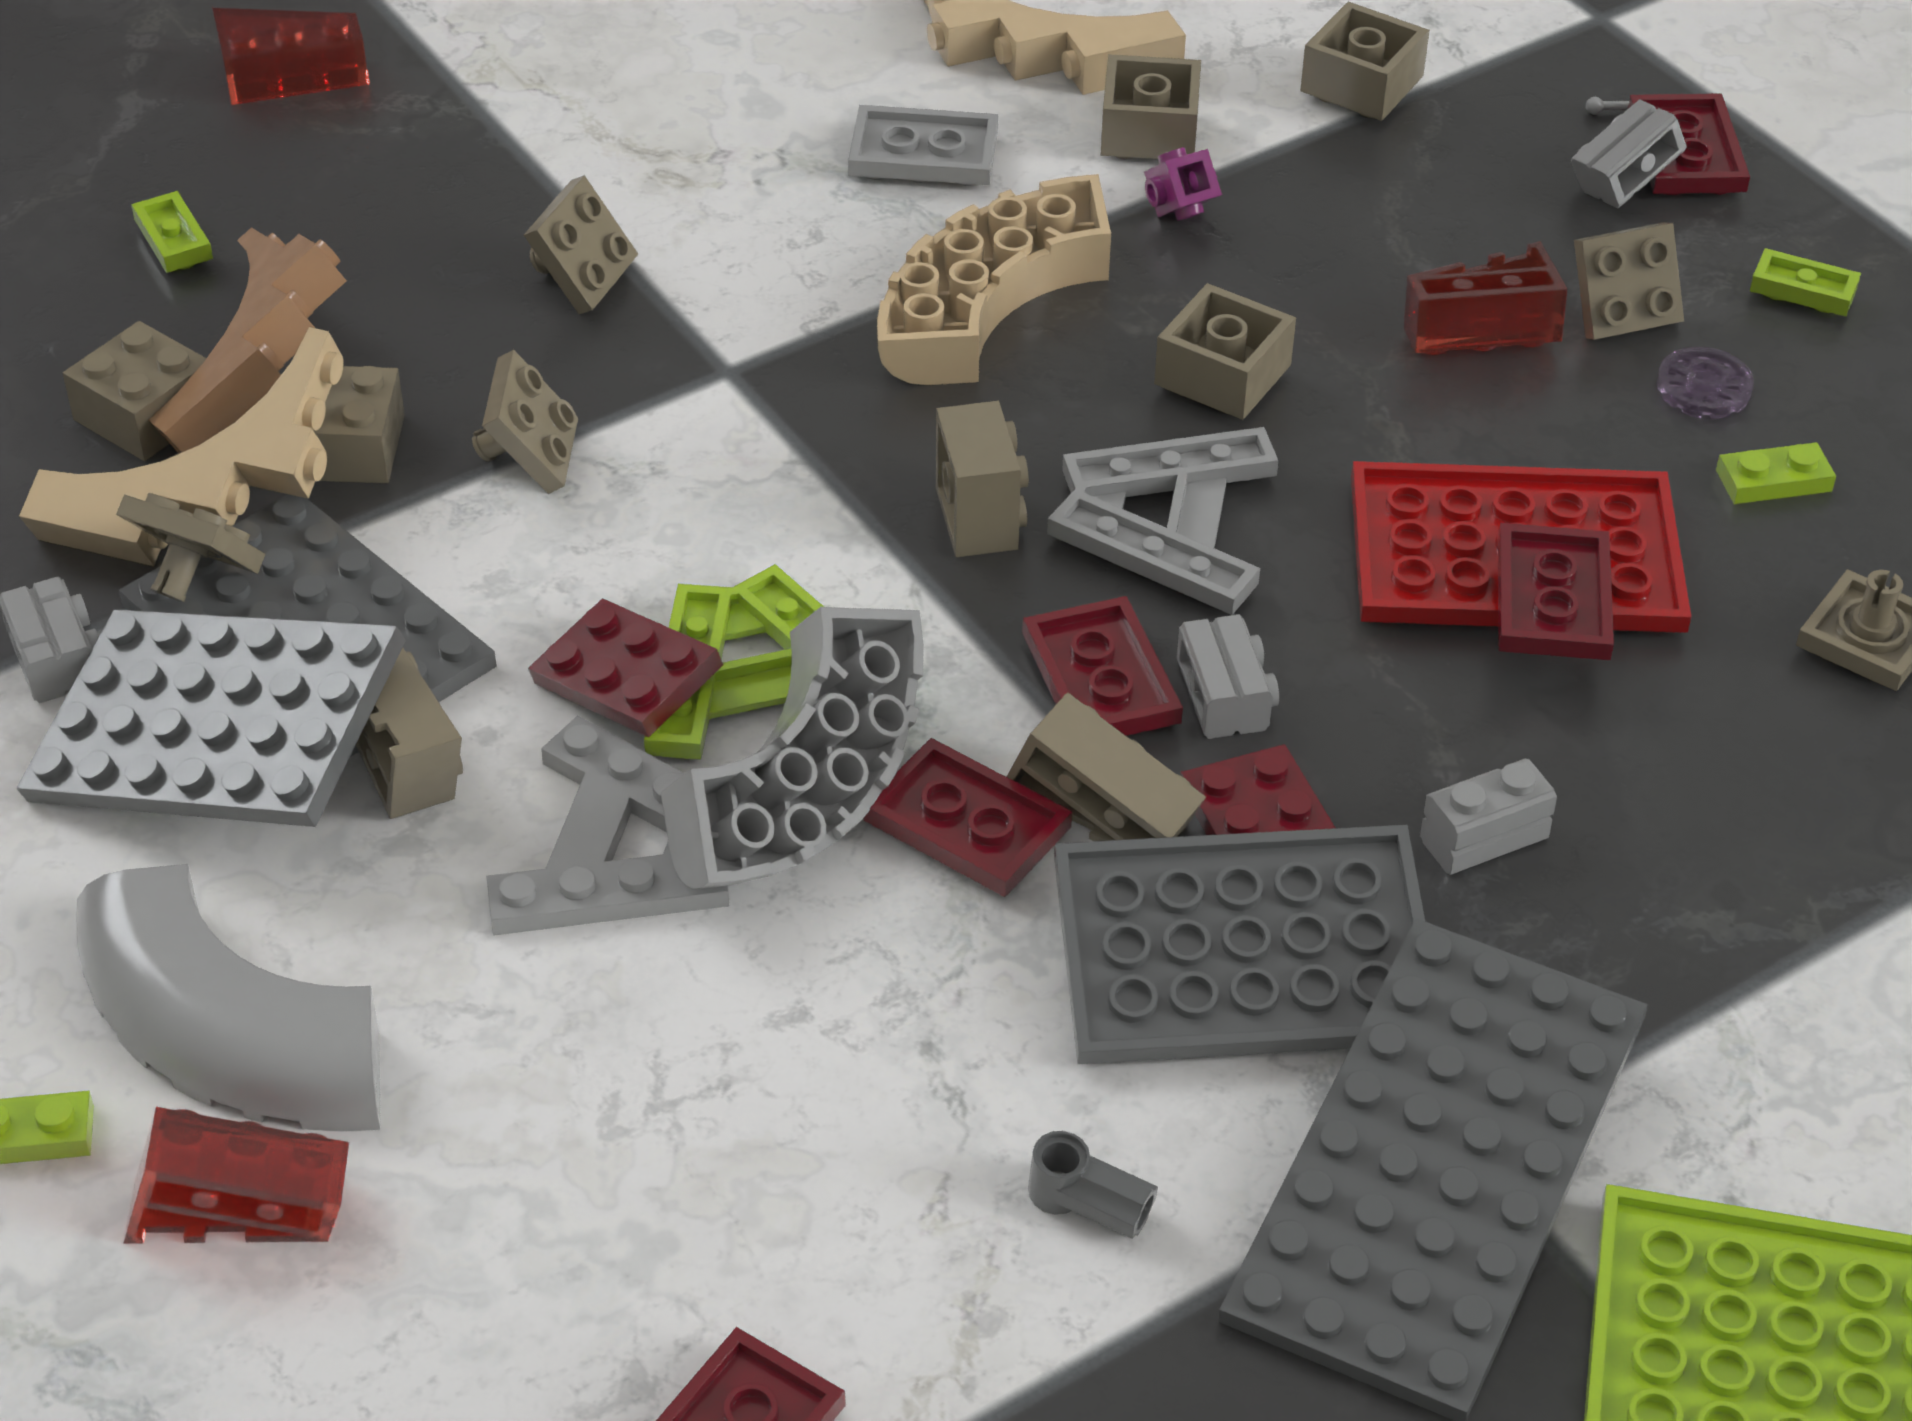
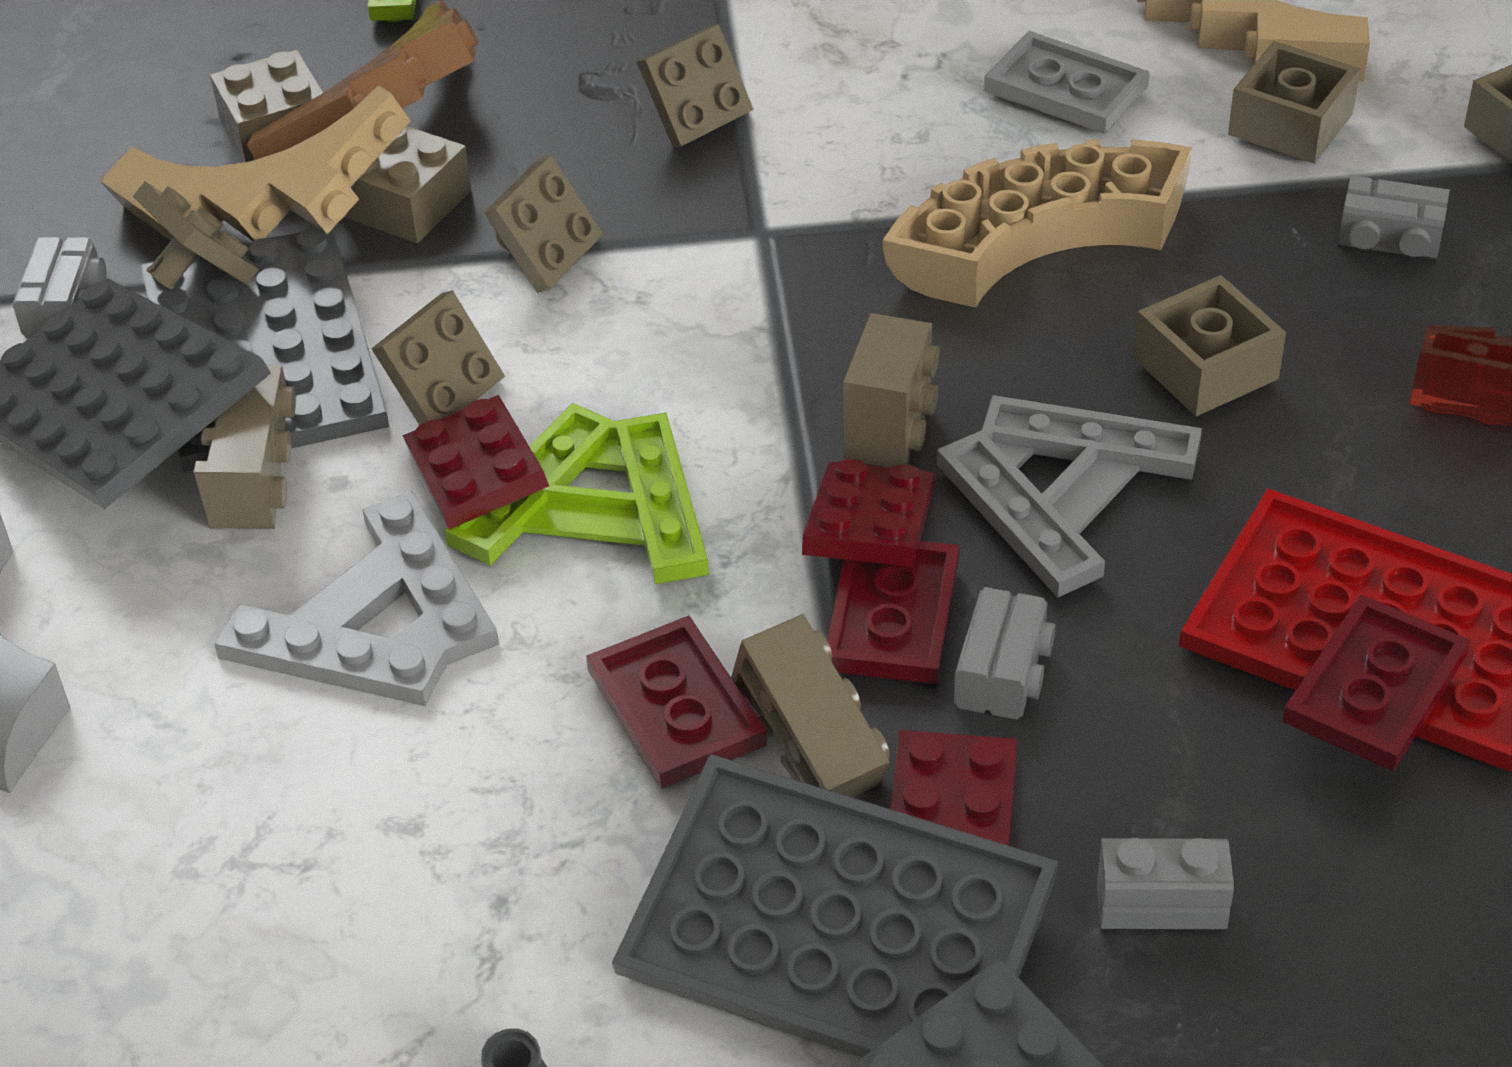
camera: 30 degrees right, 0 degrees up
(524, 585) = (438, 360): none -> dark tan plate
(820, 764) = (560, 605): light grey brick -> none
(1029, 593) = (869, 513): none -> dark red plate
(1181, 183) = (1290, 169): magenta brick -> none
(1299, 190) = (1393, 217): none -> light grey brick

